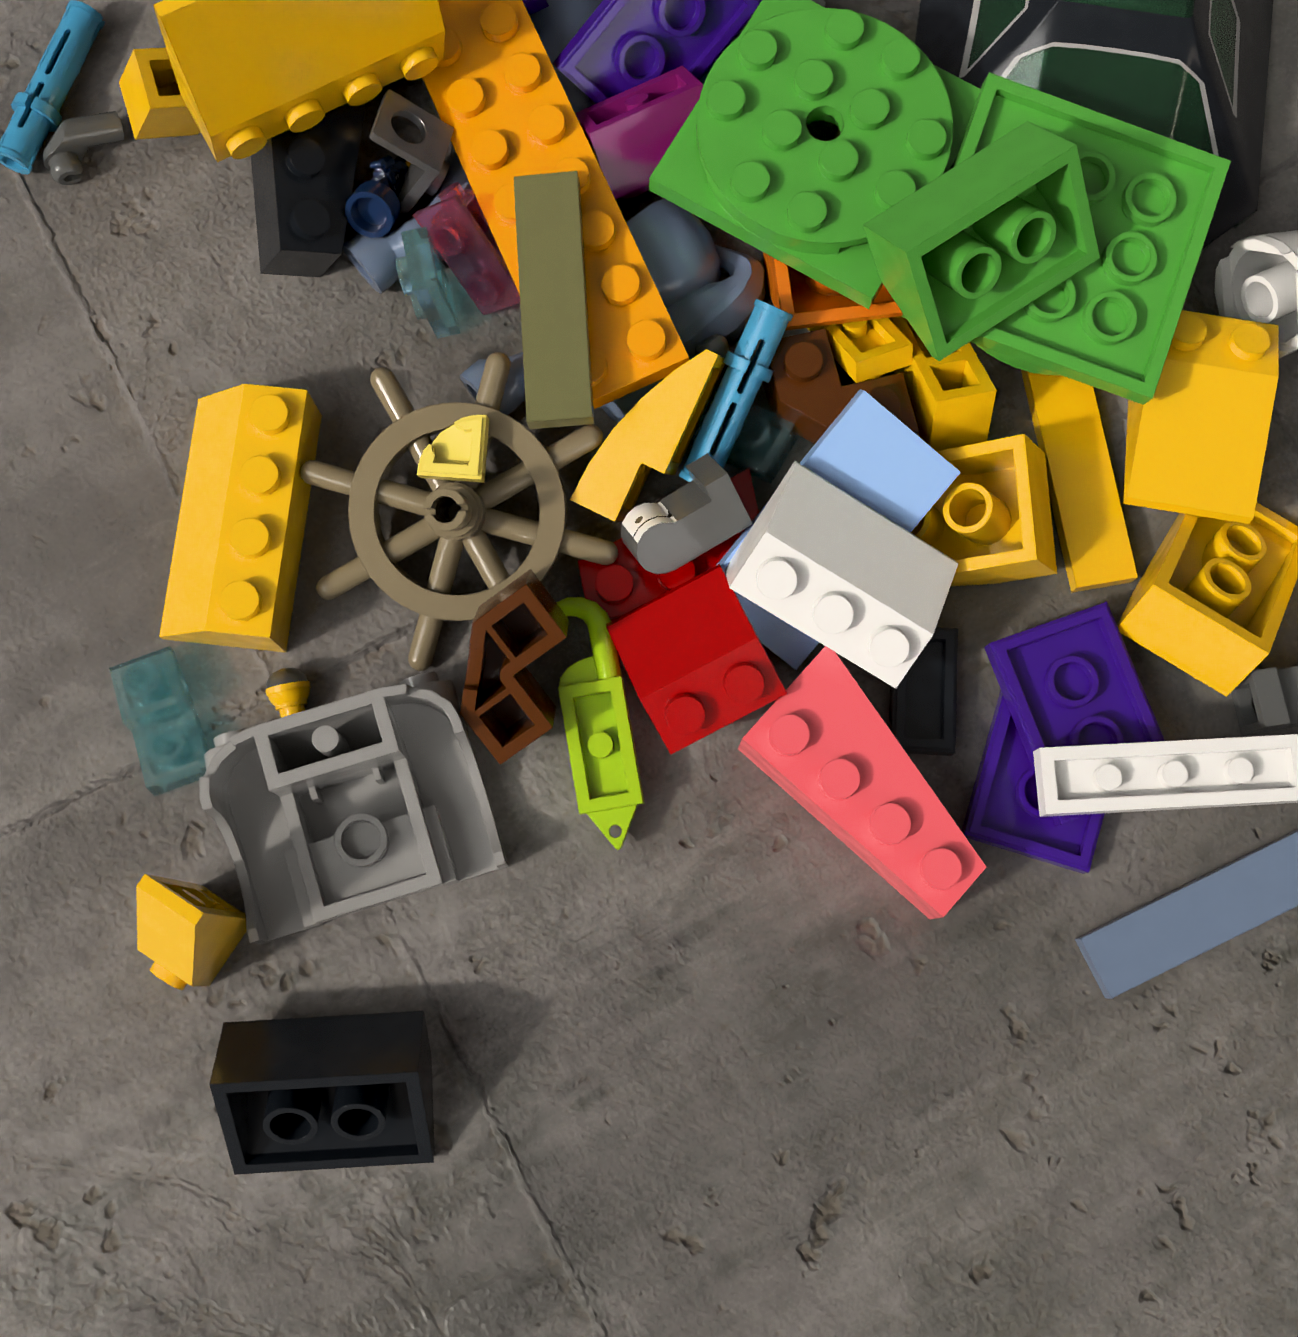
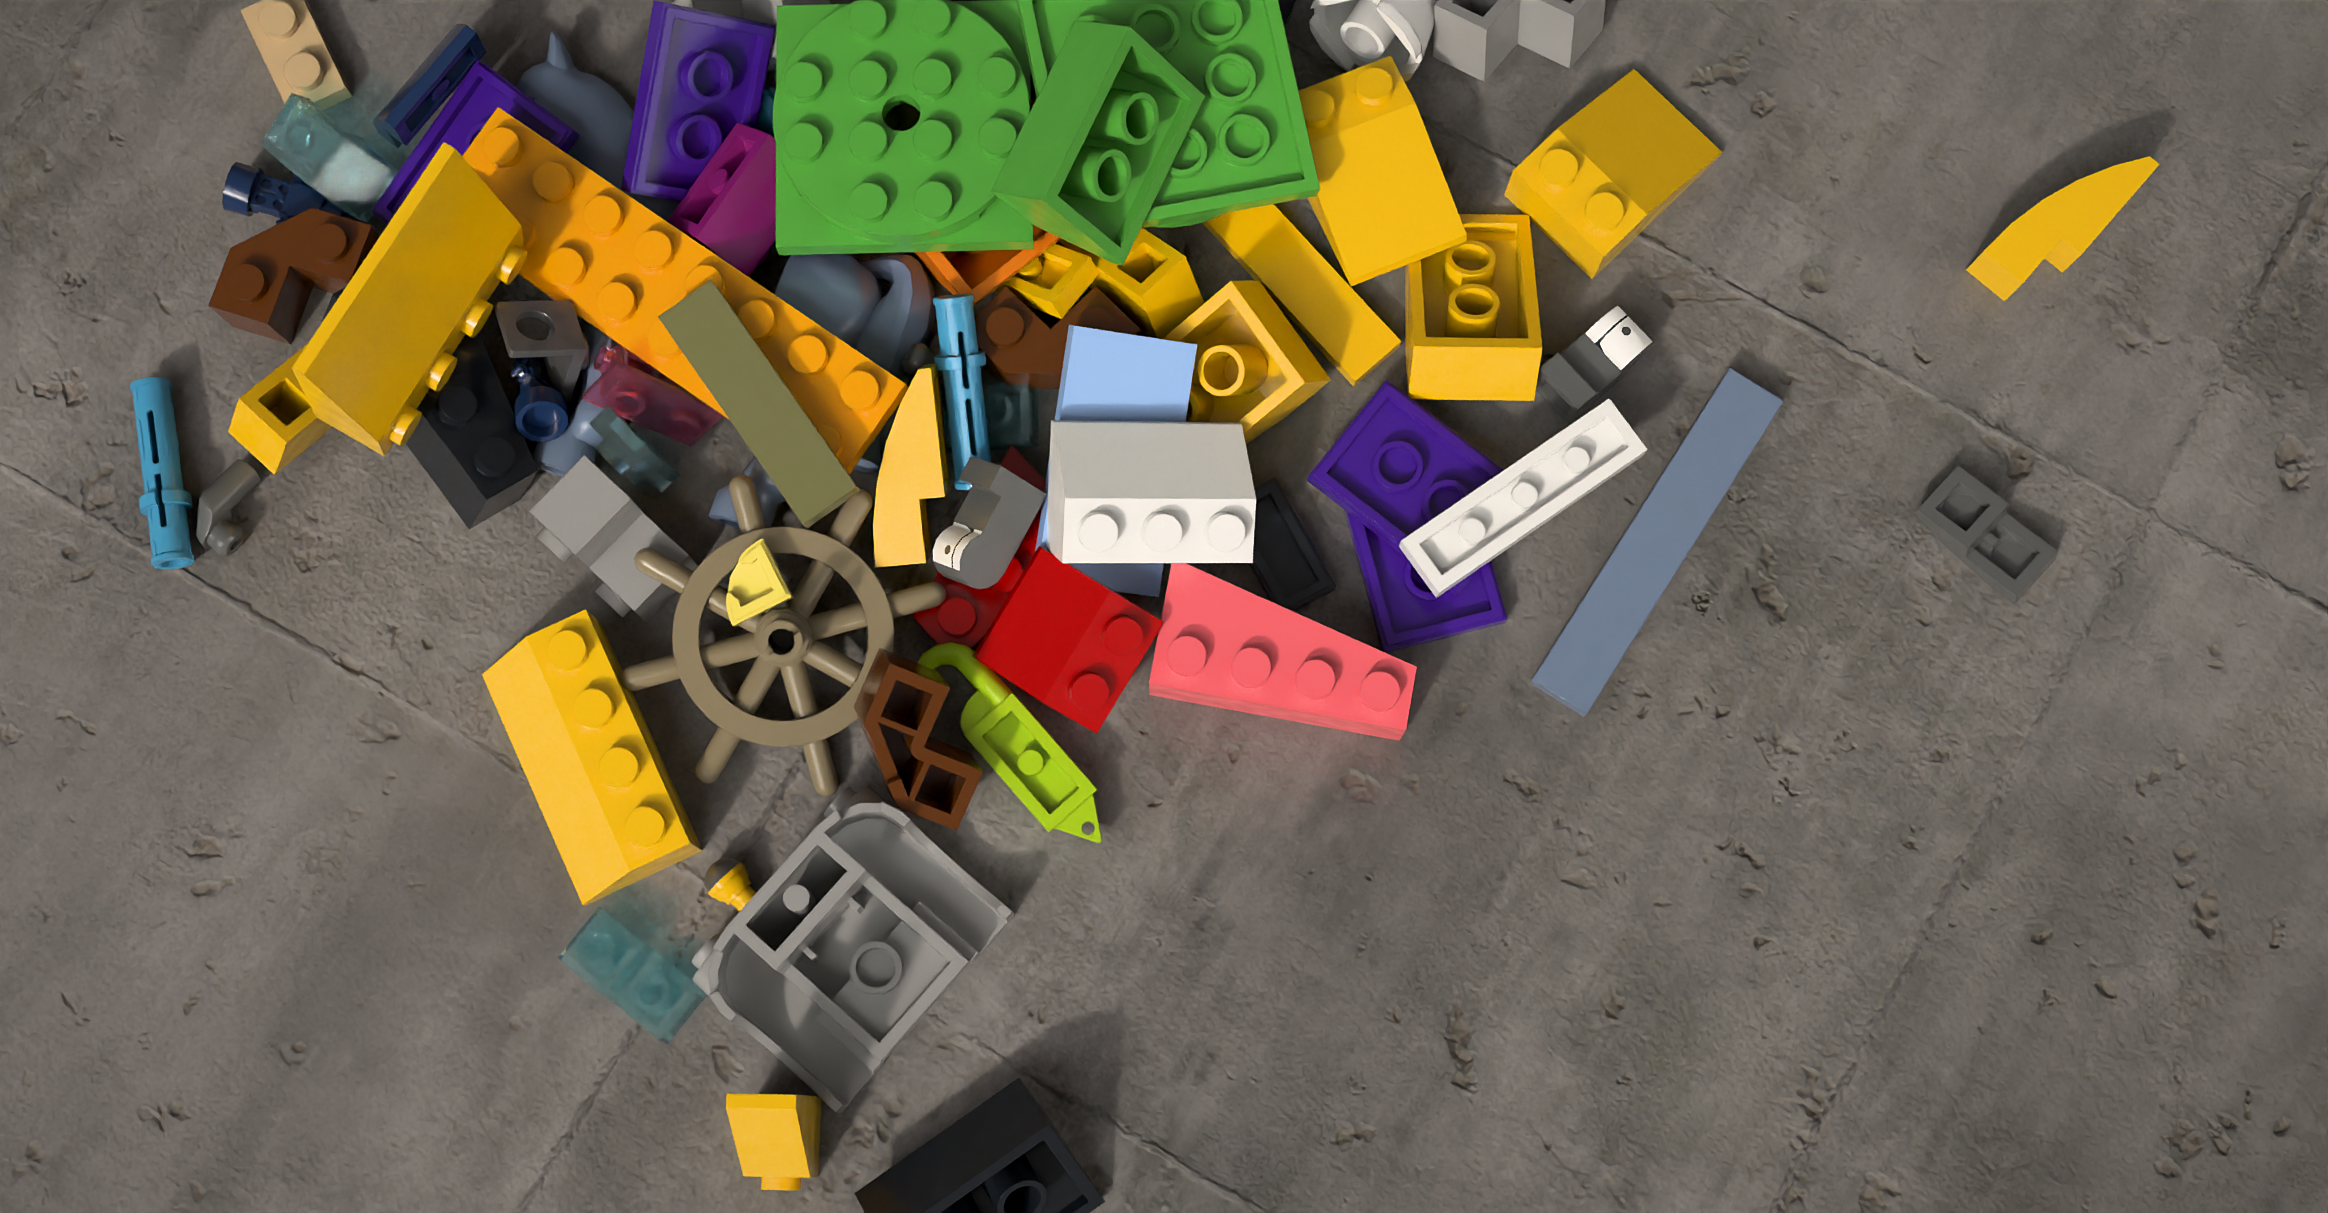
camera: 30 degrees left, 0 degrees up
(362, 331) = (605, 531): none -> light grey brick

